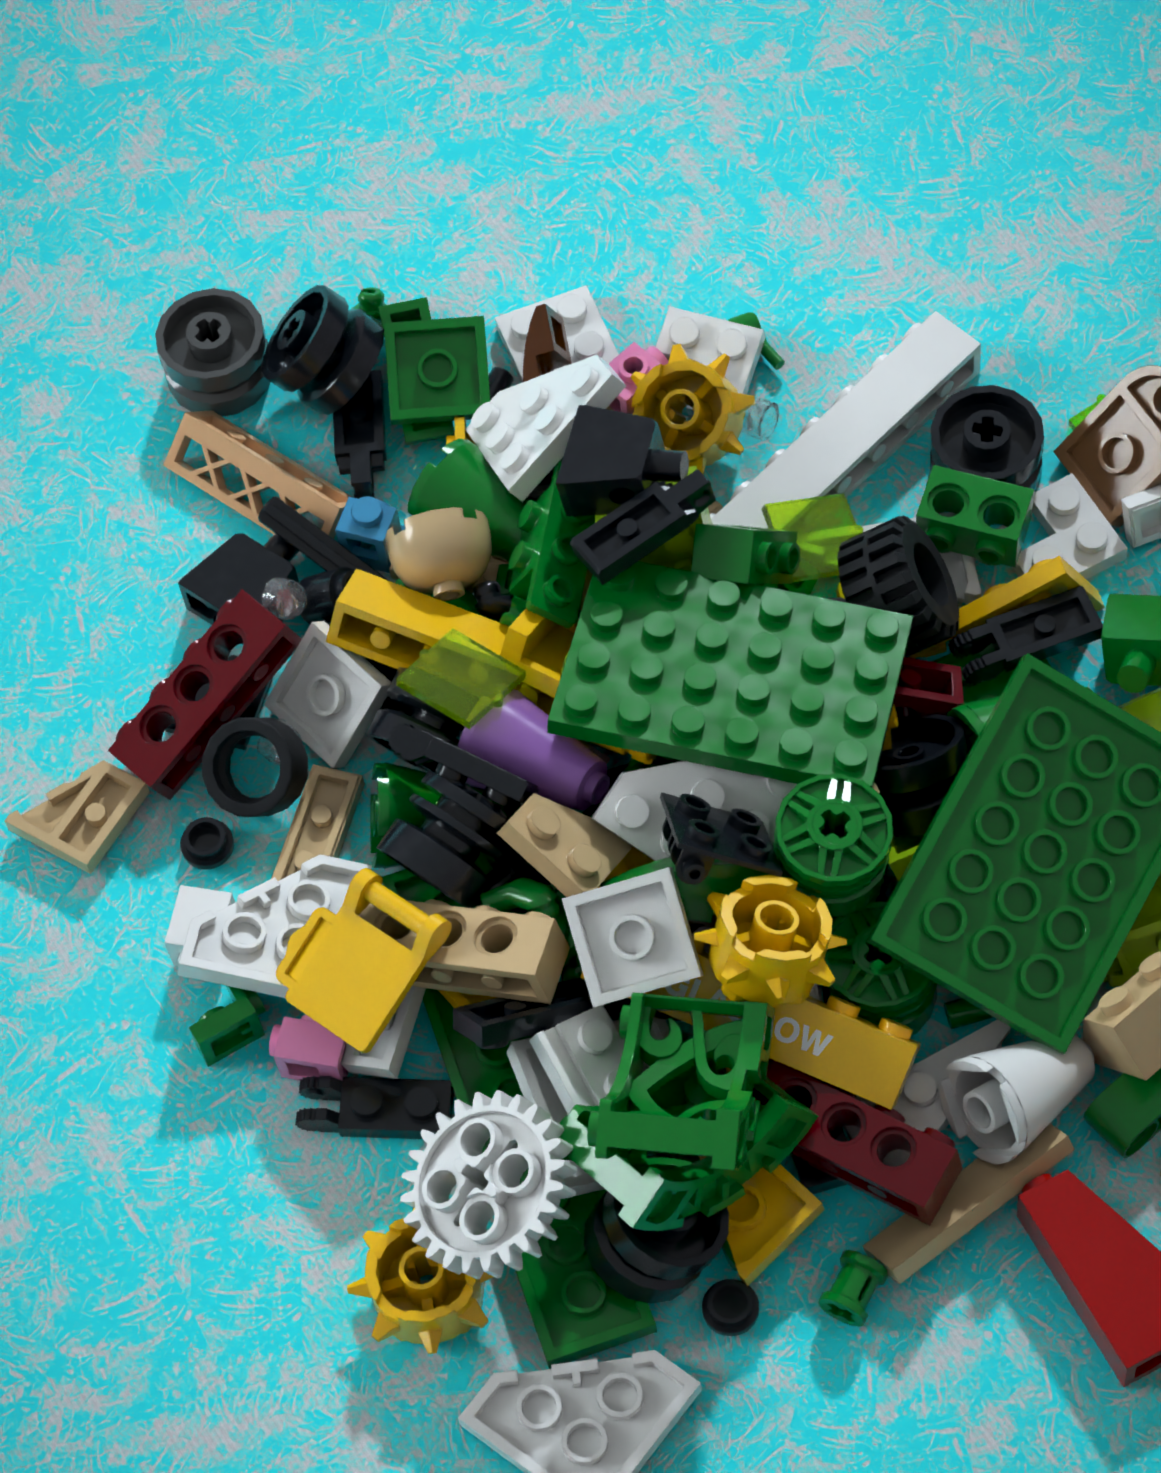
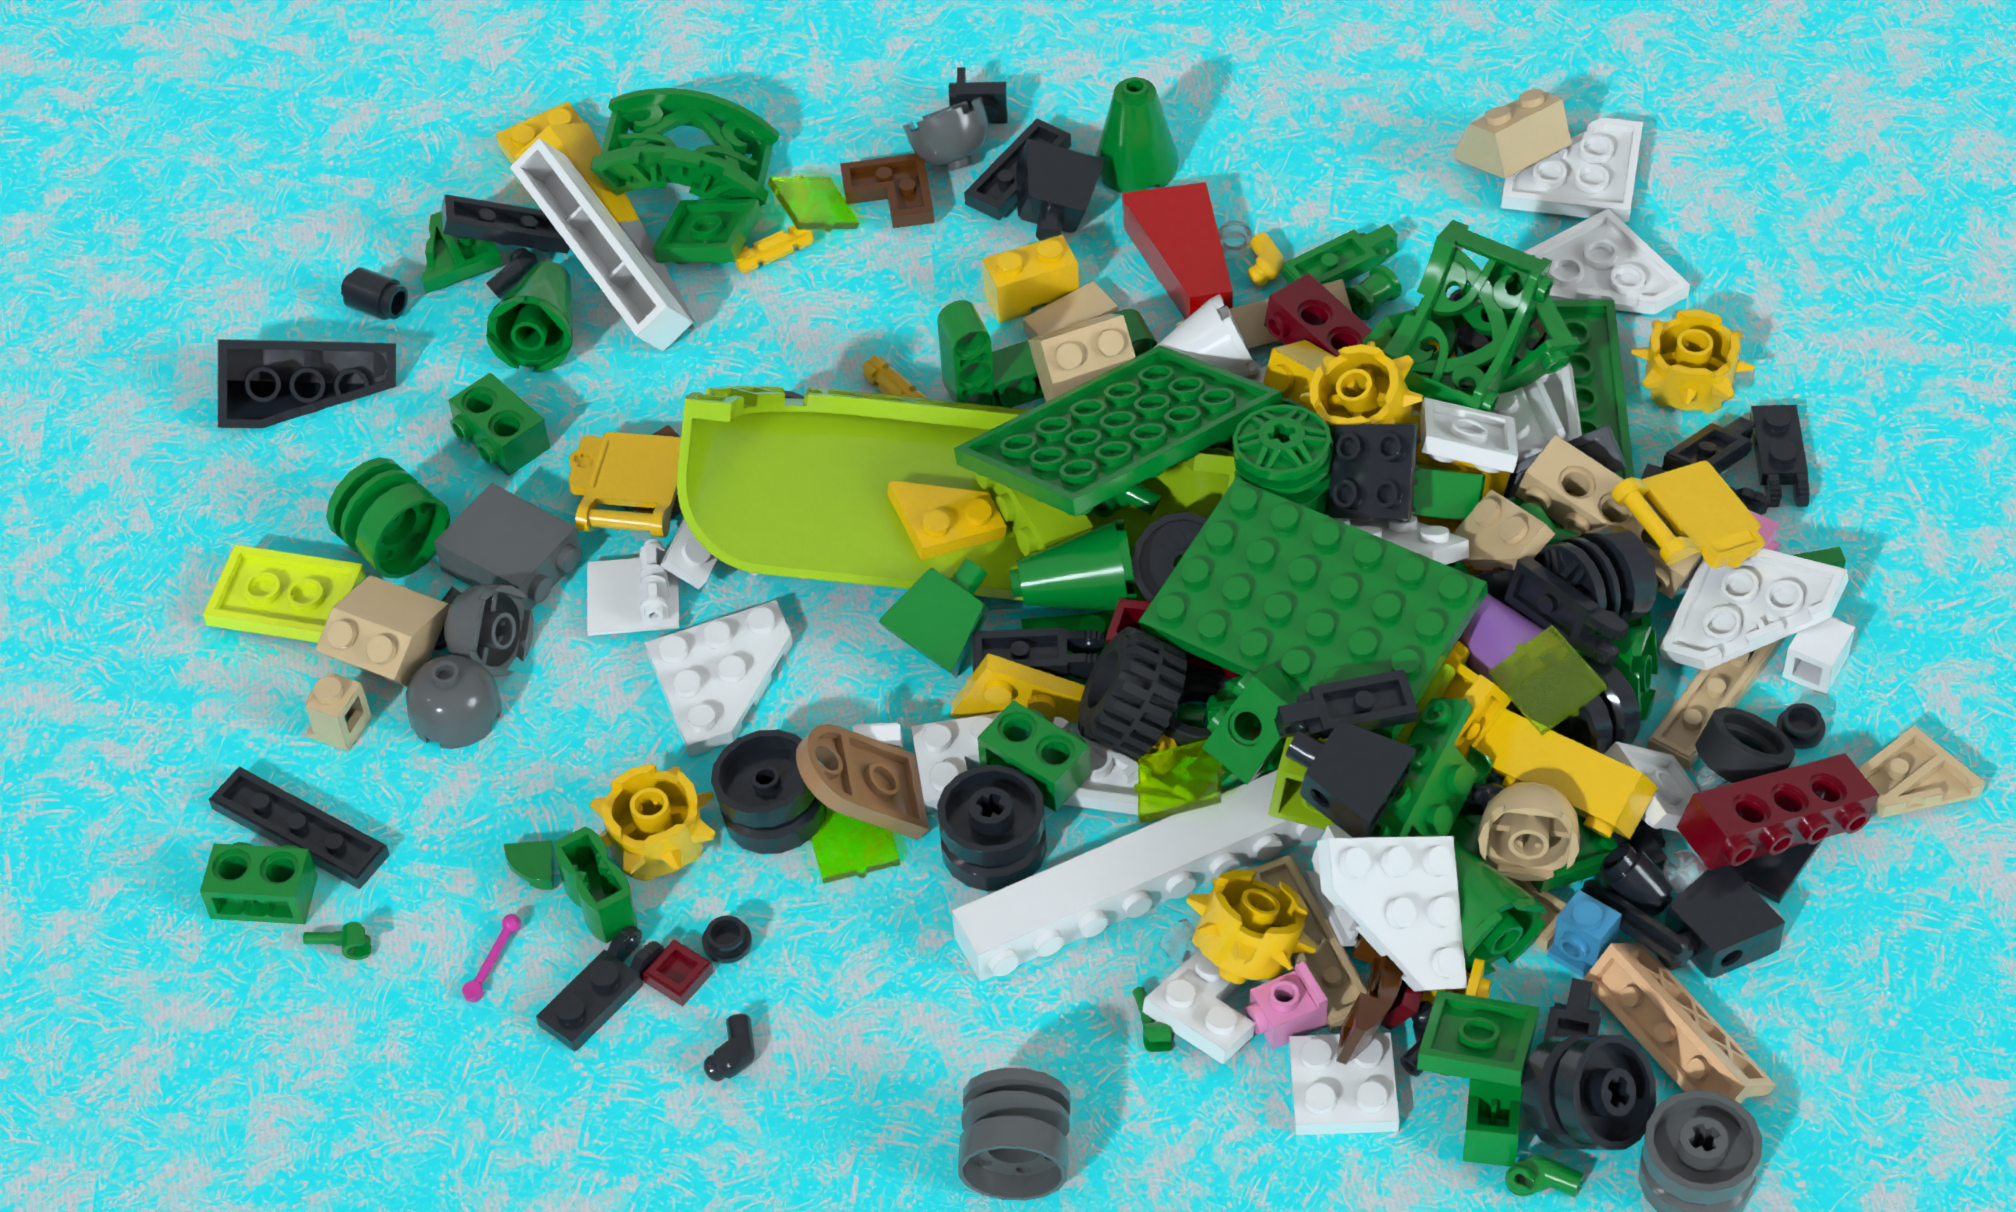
camera: 165 degrees left, 10 degrees down
(298, 1210) = (1780, 452): none -> black hinge
(371, 1148) = (1713, 444): none -> black hinge
(488, 1184) = (1631, 341): white gear -> none
(825, 167) = (1014, 1134): none -> dark grey wheel
(913, 1328) = (1344, 256): none -> green hinge
(1001, 1308) = (1268, 262): none -> yellow arm
(1054, 1314) = (1235, 239): none -> clear hinge
(1121, 191) = (735, 1053): none -> black arm

